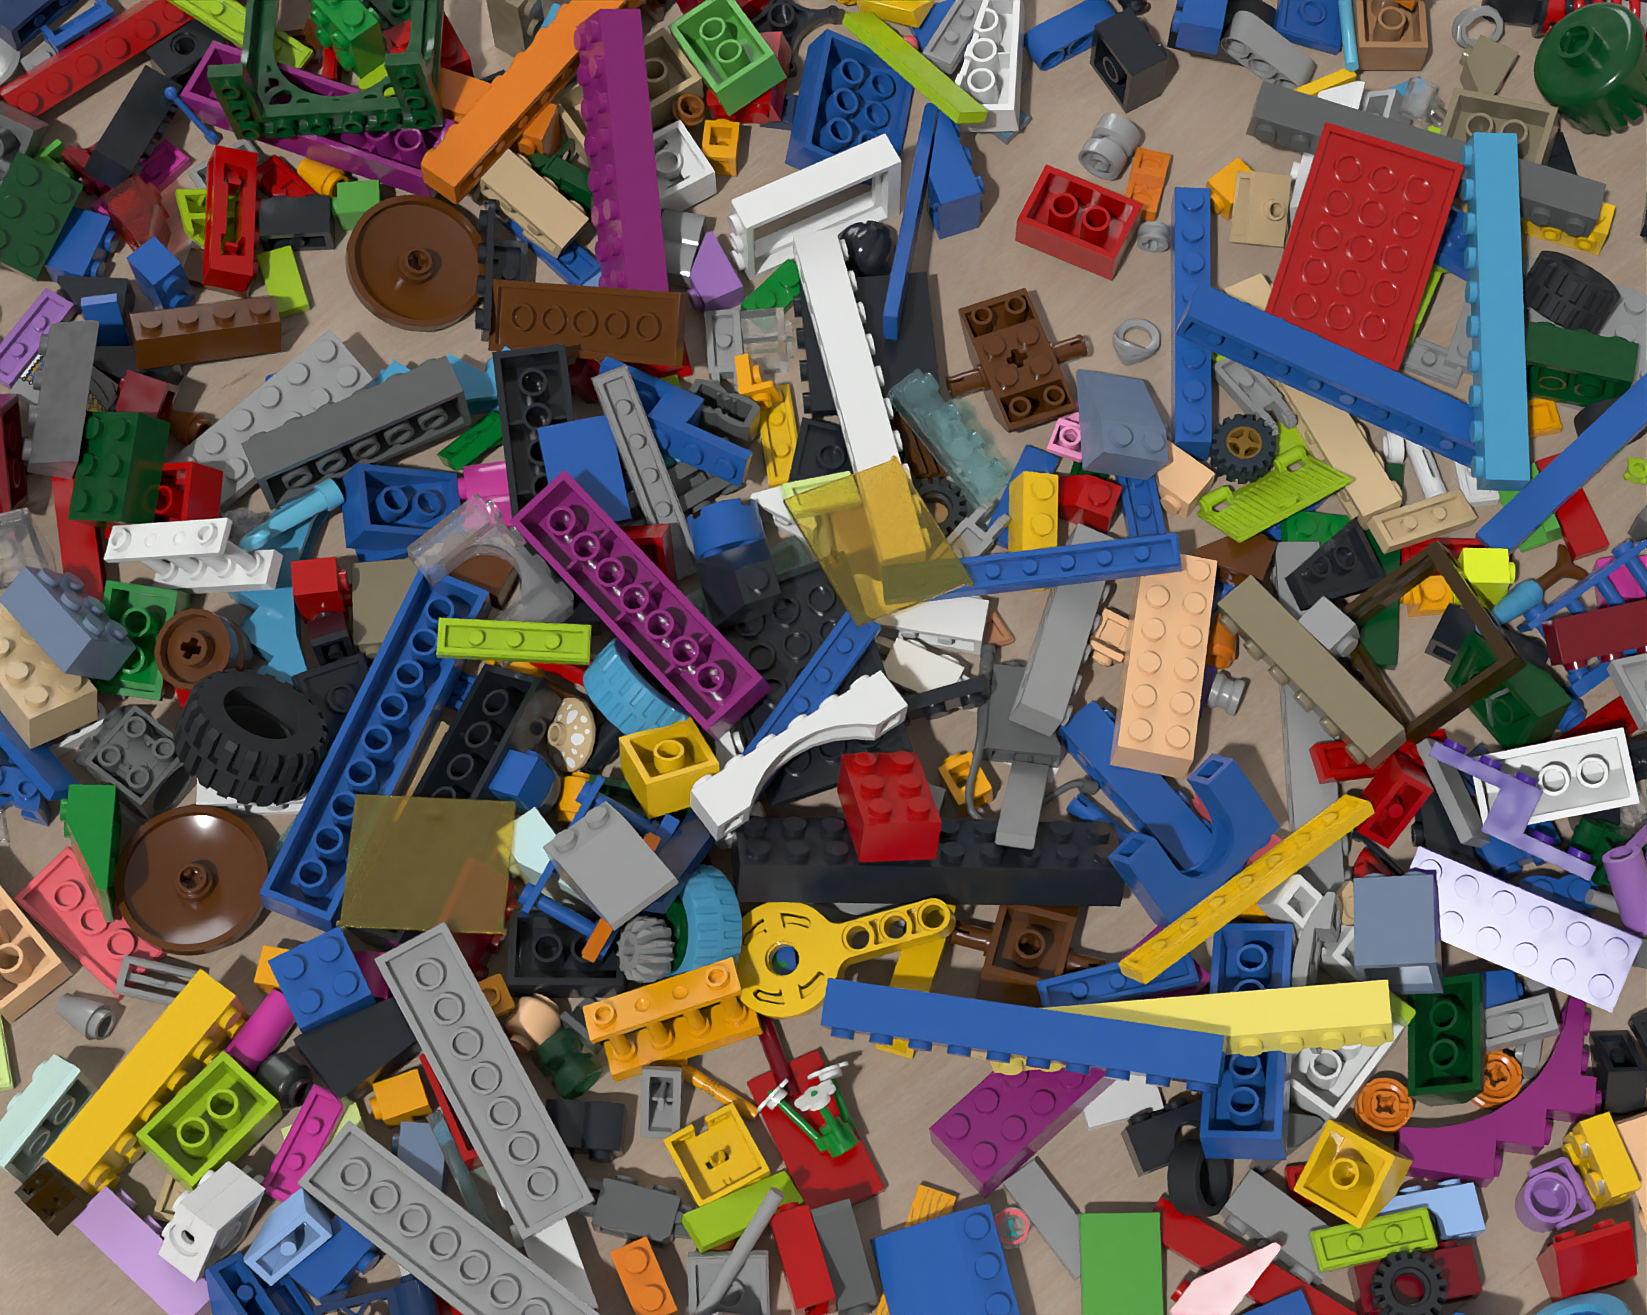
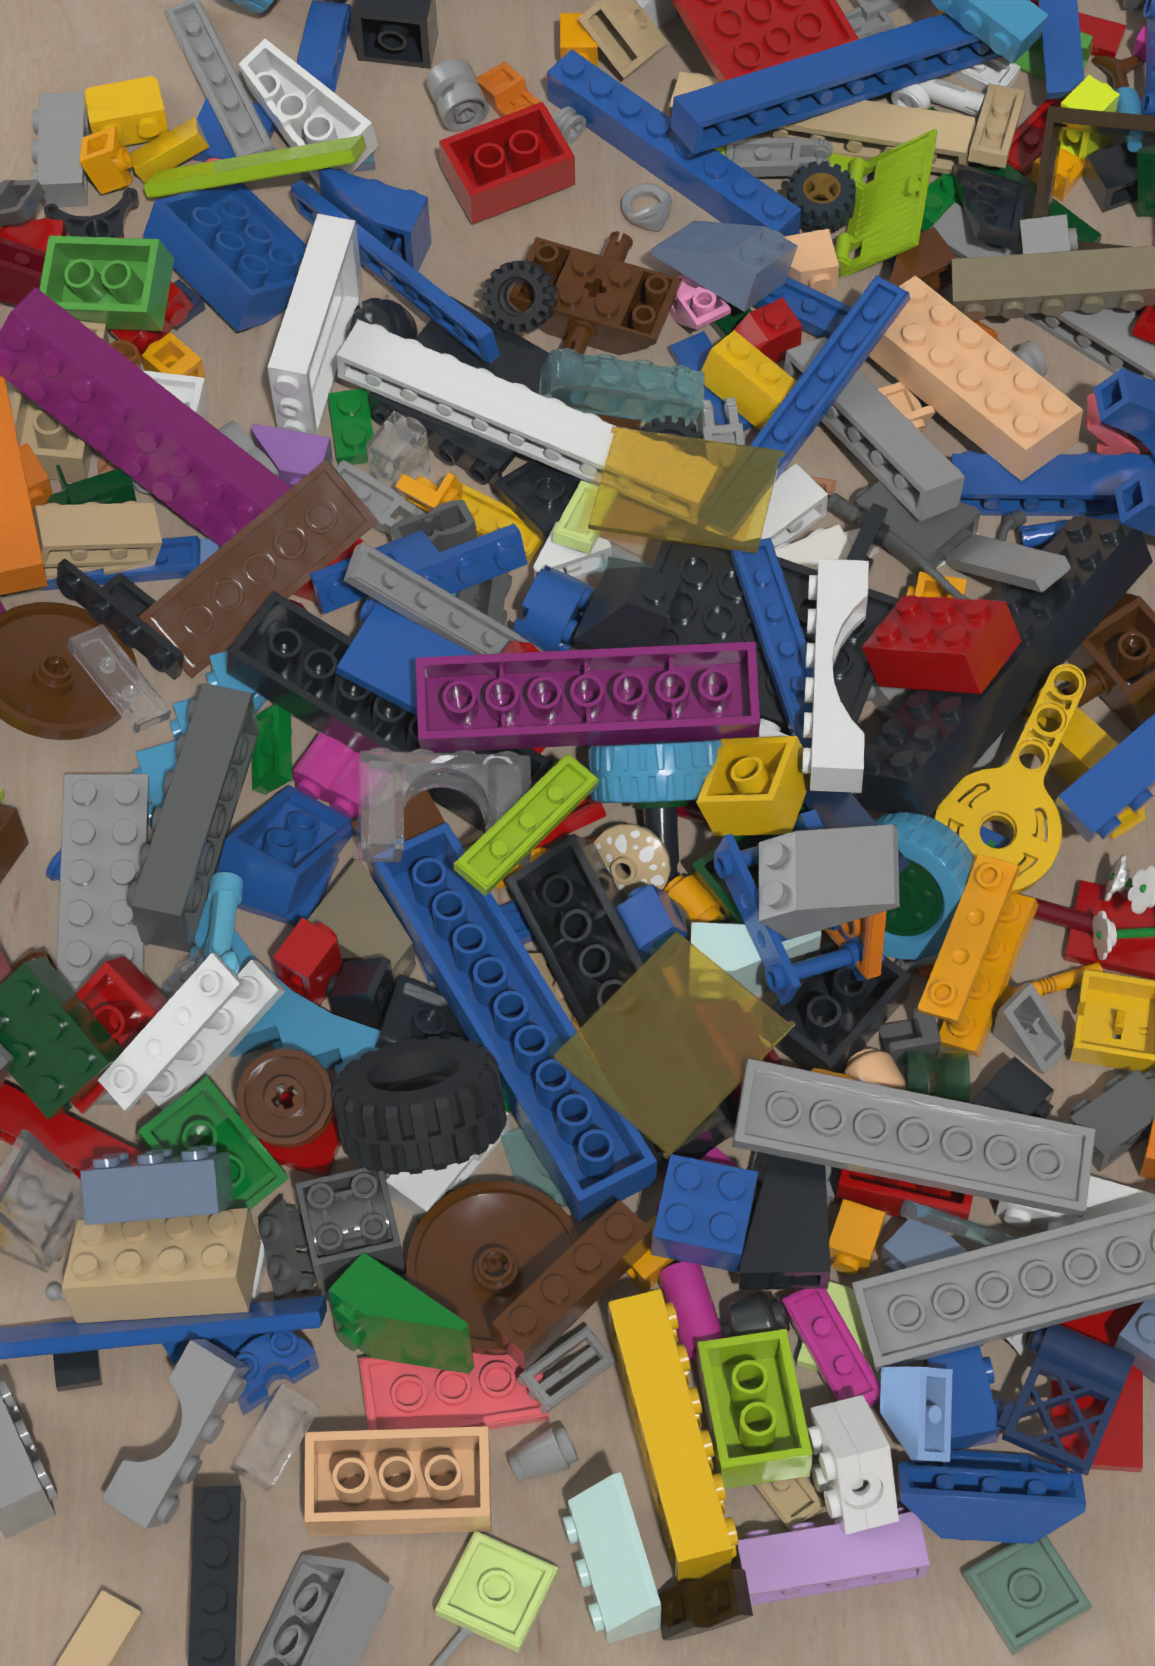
camera: 50 degrees left, 5 degrees down
(200, 936) = (571, 1285): none -> reddish brown brick
(442, 305) = (119, 678): none -> clear tile
(645, 949) = (909, 929): light grey gear -> none
(942, 312) = (497, 296): none -> black tyre

